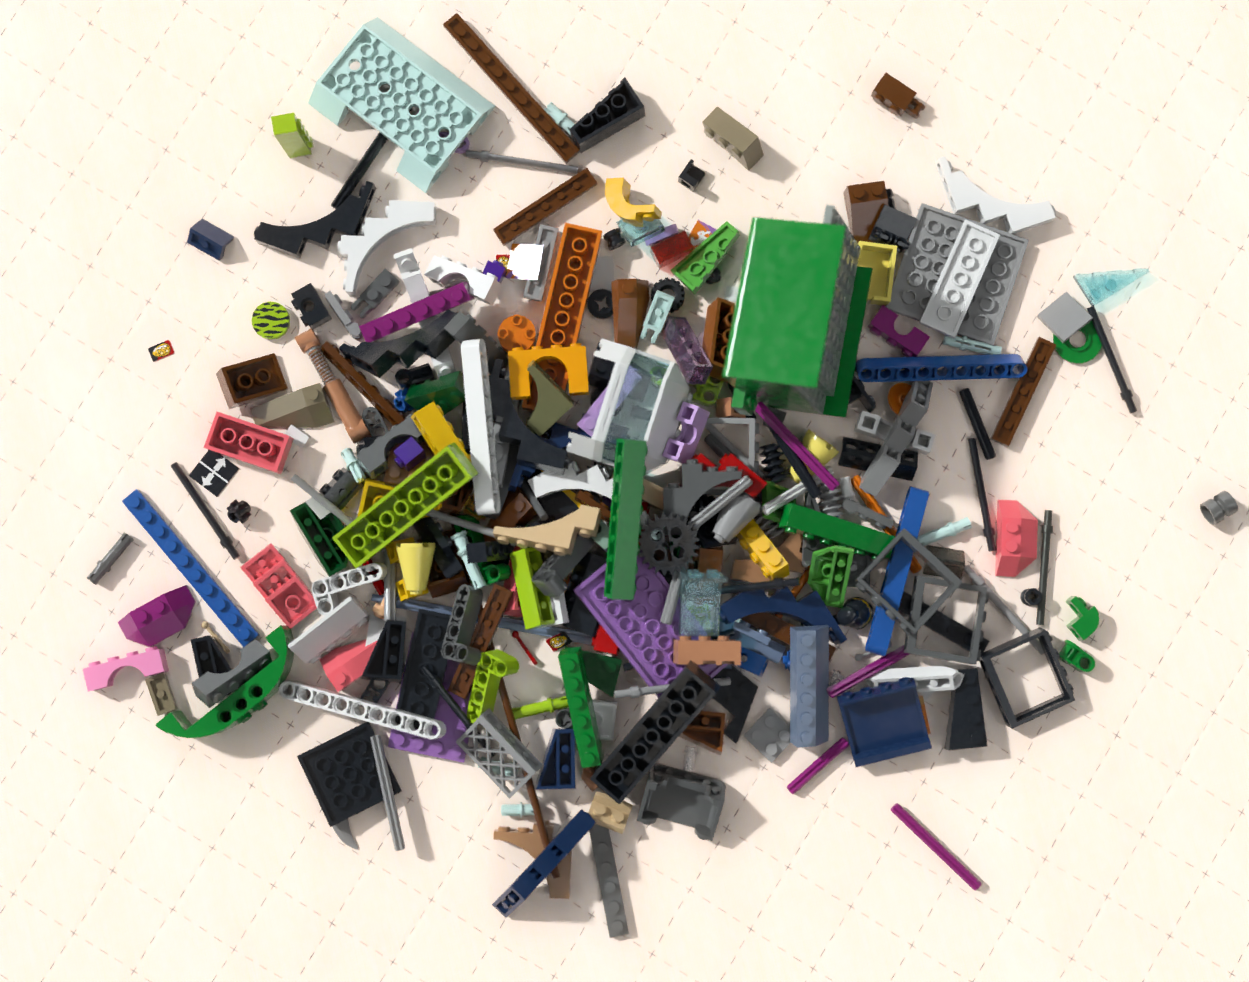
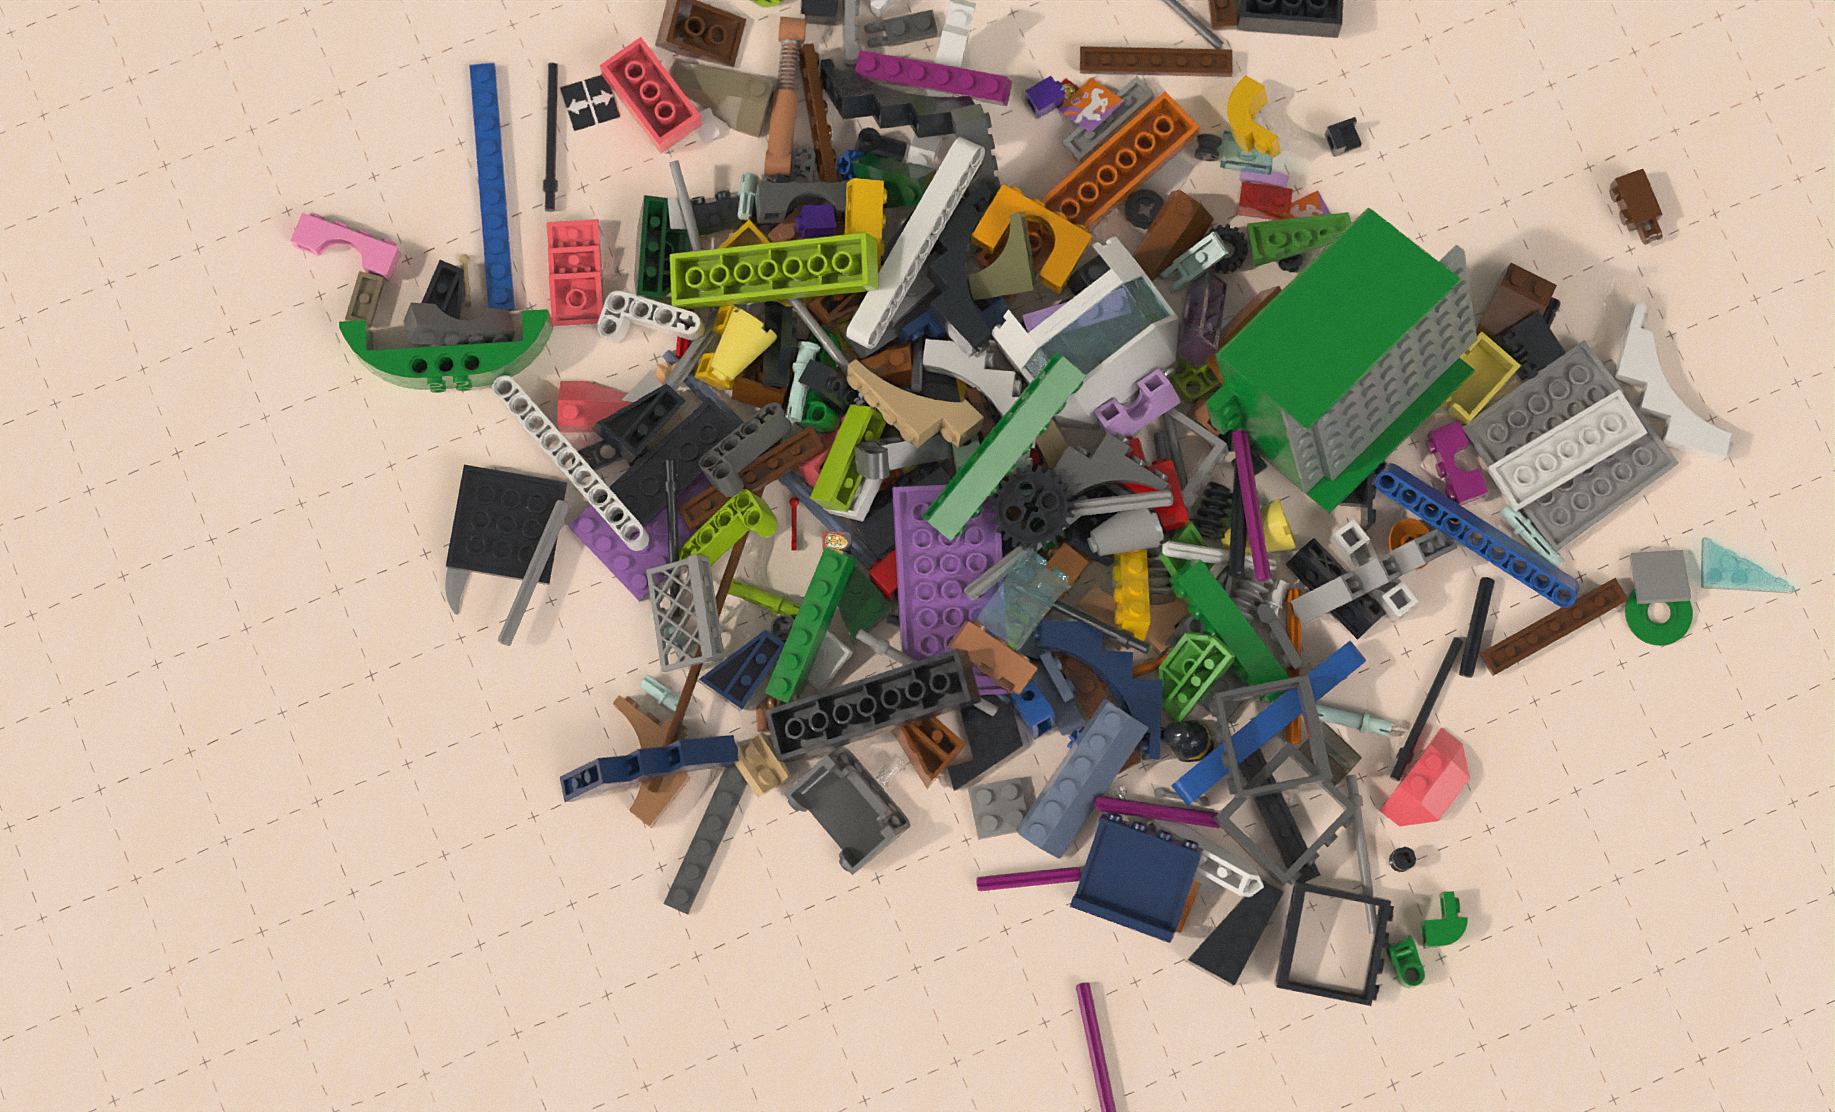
camera: 35 degrees right, 5 degrees down
(109, 559) = (413, 117): dark grey pin -> none
(159, 617) = (420, 215): magenta wedge -> none
(239, 511) = (587, 161): black gear -> none
(329, 630) = (595, 354): white slope -> none
(445, 272) = (995, 56): white arch -> none
(517, 332) = (1029, 173): orange brick -> none
(733, 137) = (1419, 126): dark tan wedge -> none
(1047, 530) = (1473, 799): pearl dark grey bar -> none
(1126, 394) = (1672, 710): black bar -> none
(1218, 507) = (1694, 909): dark grey wheel -> none

